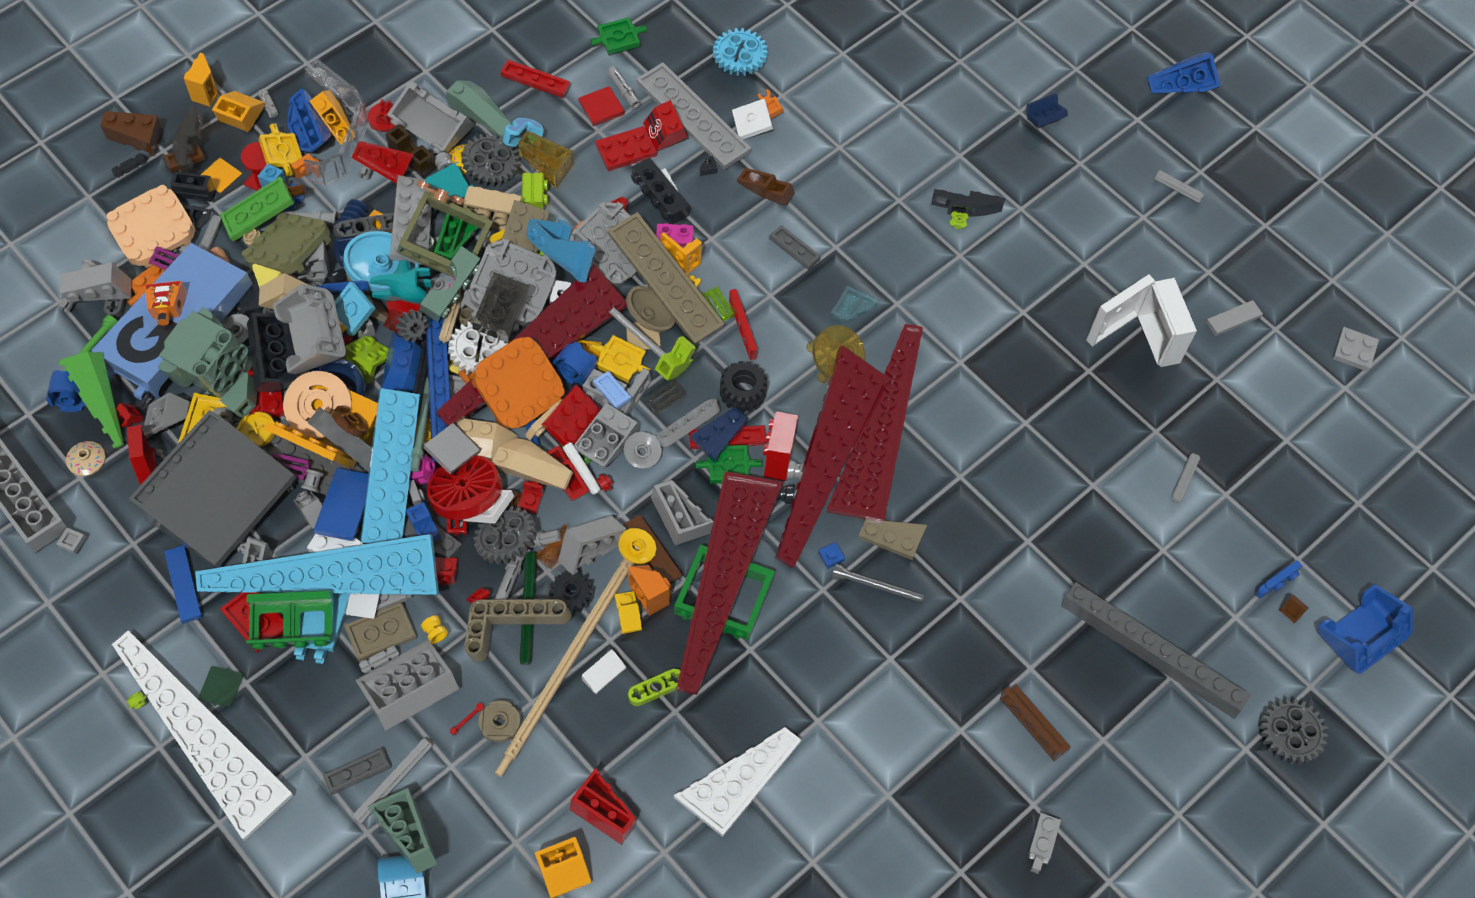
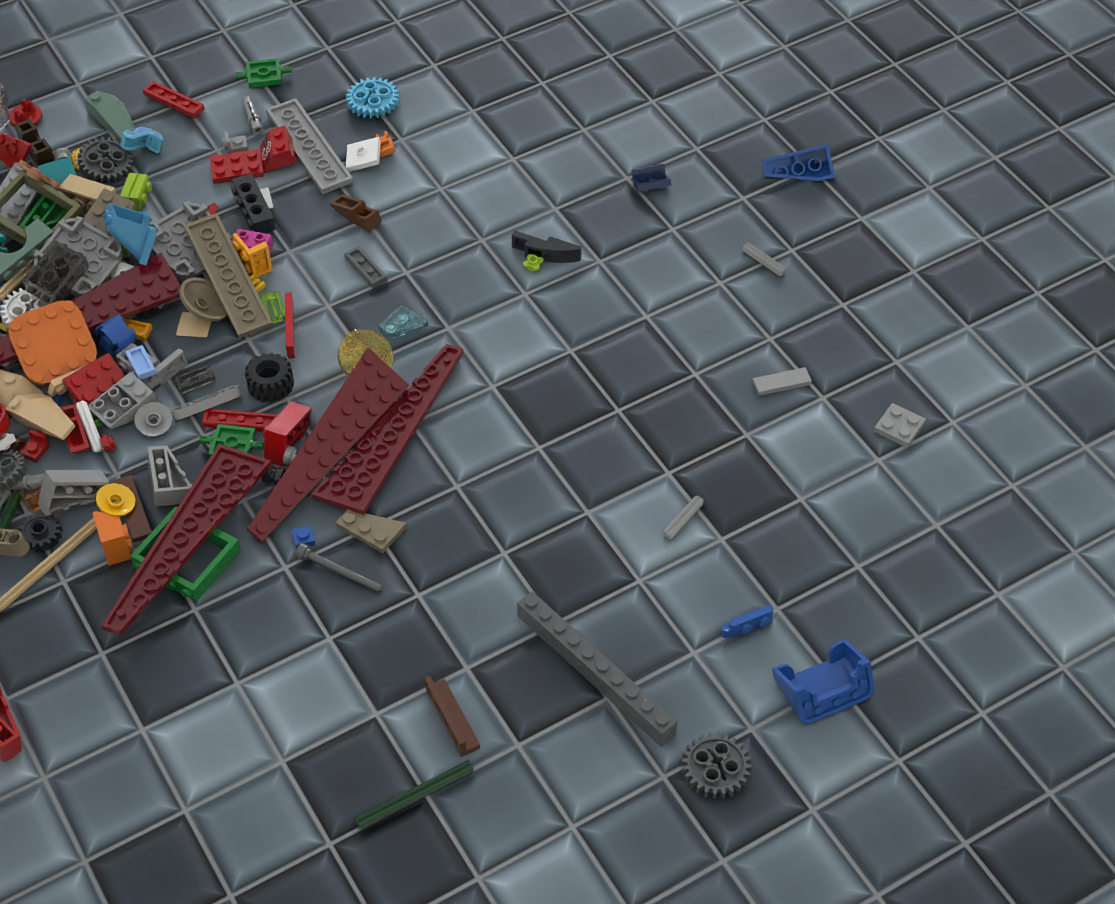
camera: 15 degrees right, 10 degrees down
(429, 118) = (61, 118): light grey windscreen -> none
(546, 157) = (157, 163): clear yellow wedge -> none
(601, 106) = (228, 123): red tile -> none
(603, 671) = (44, 606): white slope -> none
(616, 123) = (235, 144): none -> light grey bracket
(620, 358) = (162, 338): yellow plate -> none
(628, 612) = (88, 558): yellow slope -> none
(639, 334) = (188, 322): light grey bar -> none
(640, 688) = (82, 624): lime beam -> none
(676, 361) = (214, 348): lime brick -> none
(708, 167) = (308, 190): black tile -> none
(718, 433) = (229, 414): dark blue wing -> none
(733, 786) = (134, 725): white wing -> none
(1024, 809) = (413, 794): none -> dark green axle
(1043, 841) = (422, 828): light grey hinge -> none
(1161, 315) = (679, 349): white container -> none
(1294, 609) = (754, 651): reddish brown tile -> none

